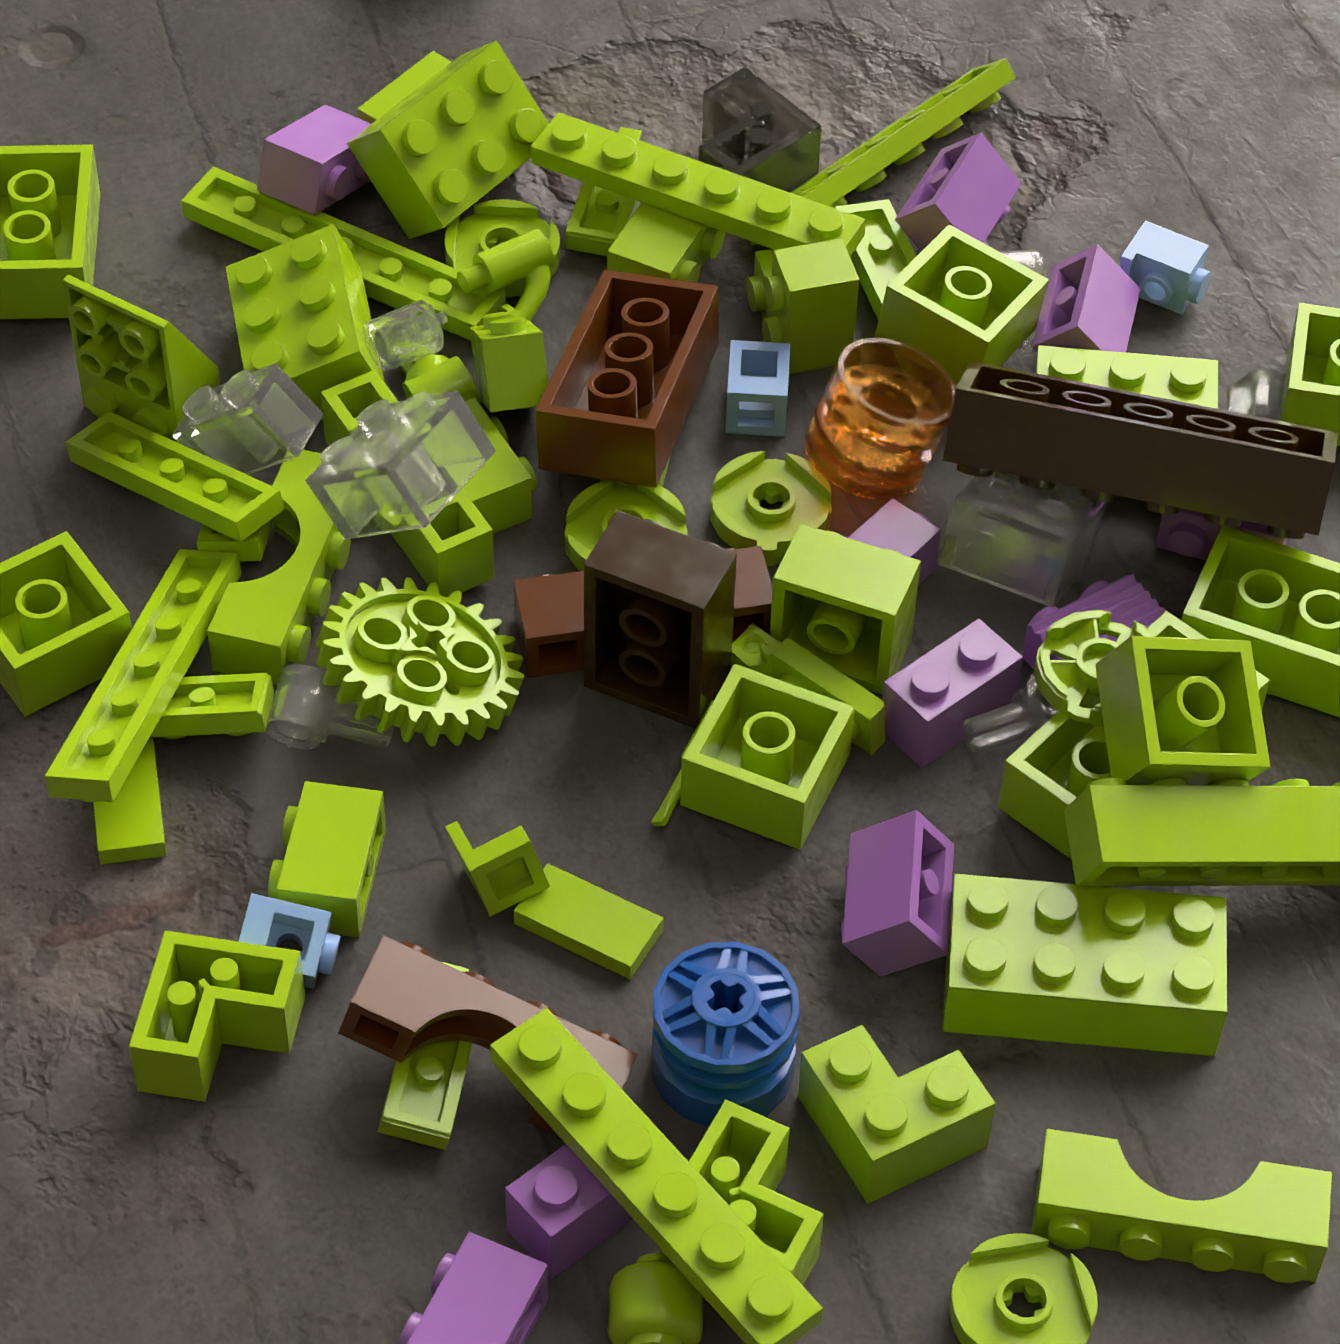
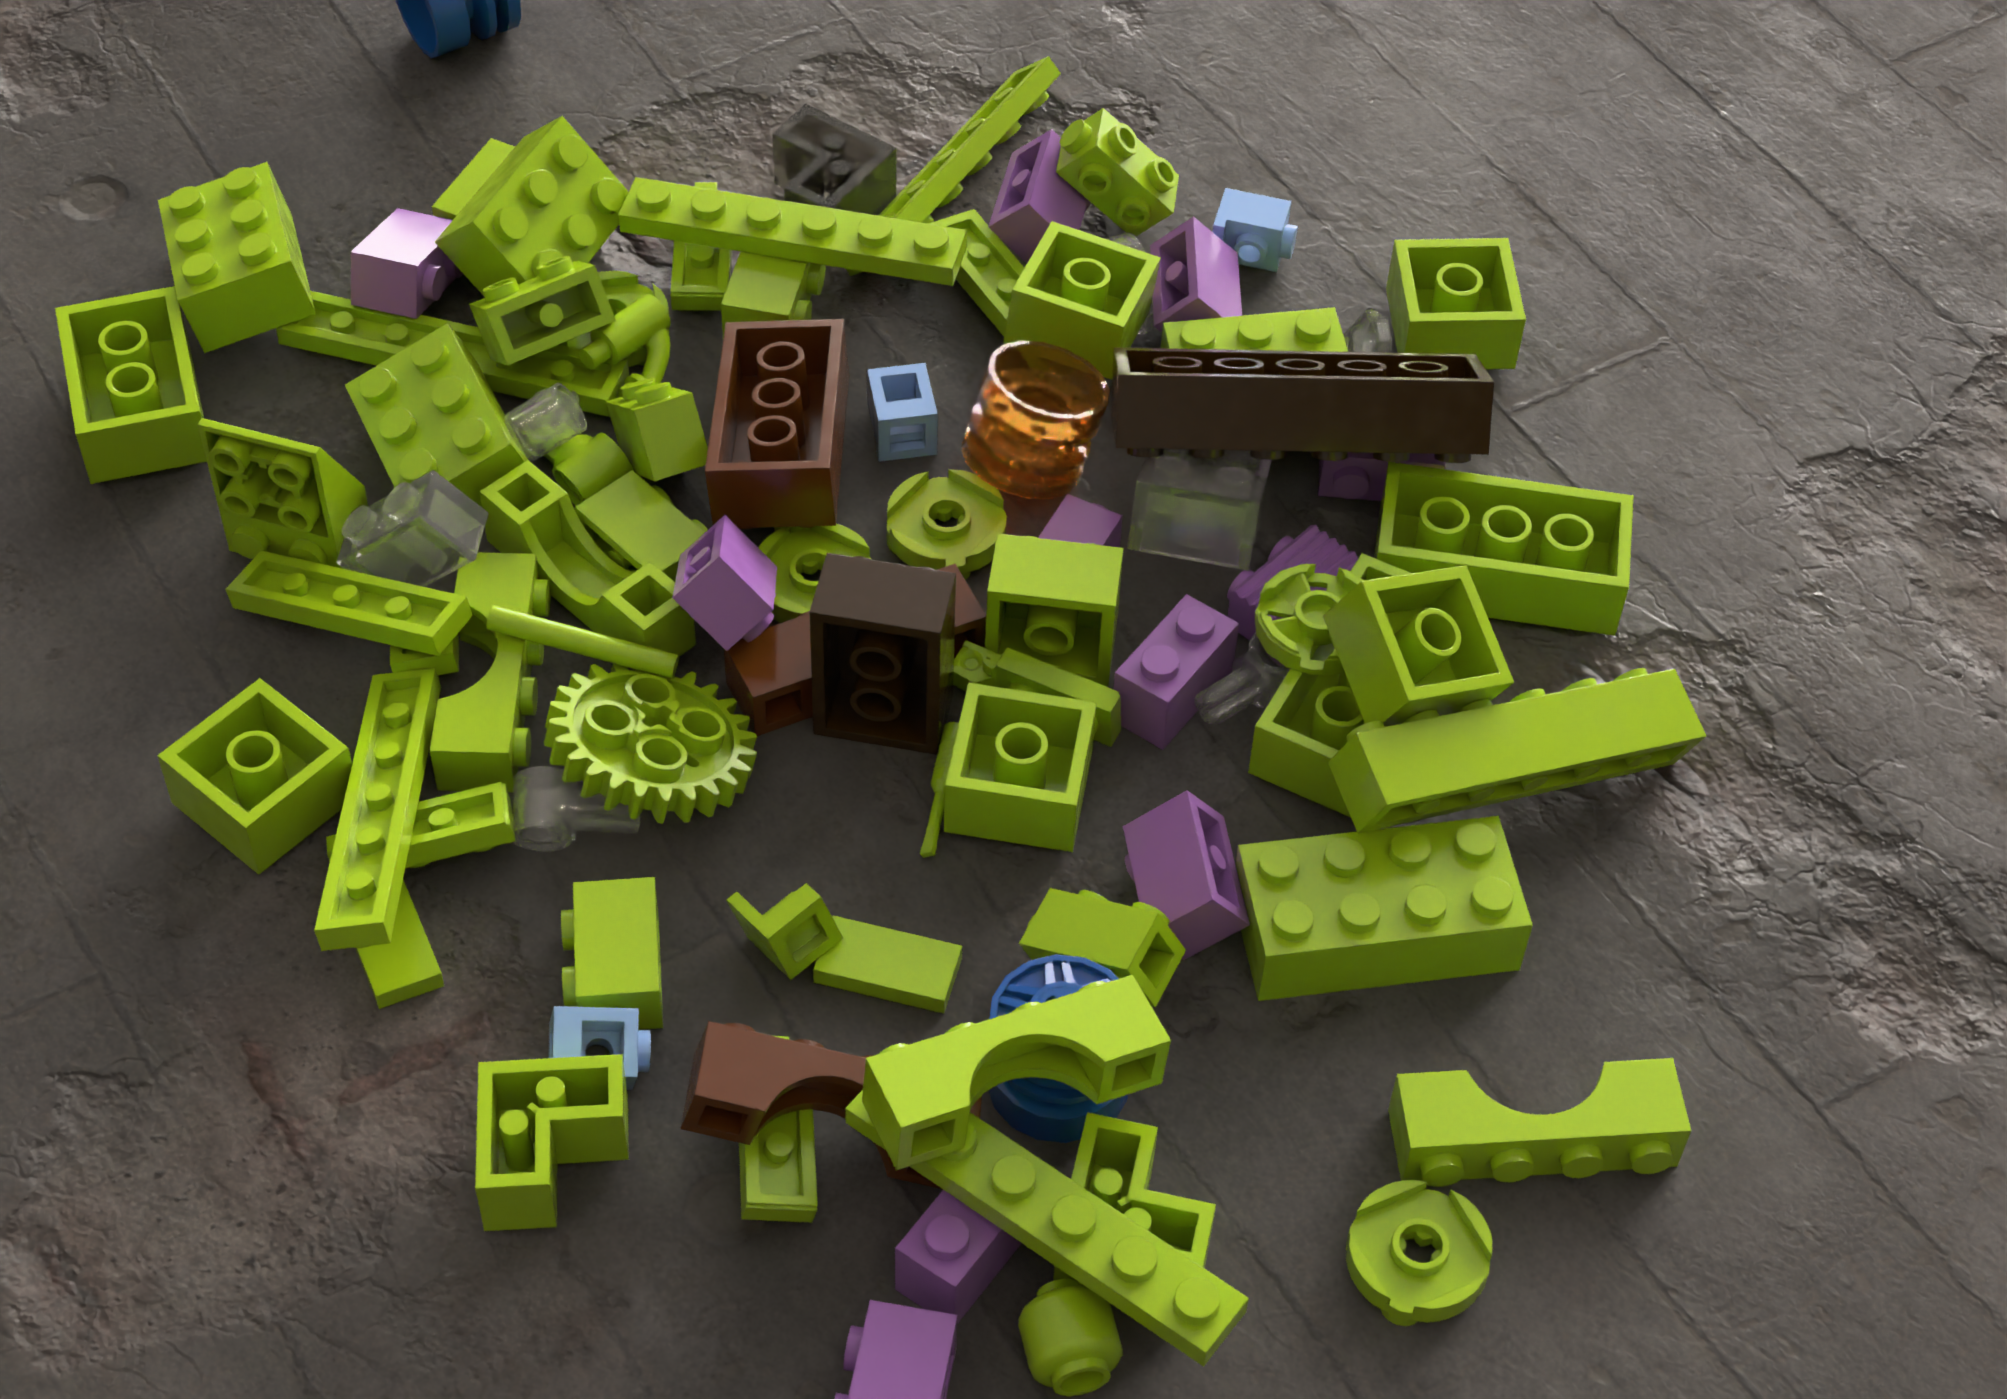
camera: 15 degrees left, 0 degrees up
(160, 126) = (235, 257): none -> lime brick
(379, 554) = (582, 642): none -> lime bar
(400, 464) = (586, 547): clear brick -> none
(430, 227) = (542, 311): none -> lime brick
(529, 525) = (726, 584): none -> medium lavender brick
(738, 1028) = (1093, 1040): none -> lime arch
(806, 301) = (928, 318): lime brick -> none
(812, 944) = (1109, 934): none -> lime brick
(890, 1125) = (1246, 1104): lime brick -> none
(1039, 187) = (1117, 172): none -> lime brick

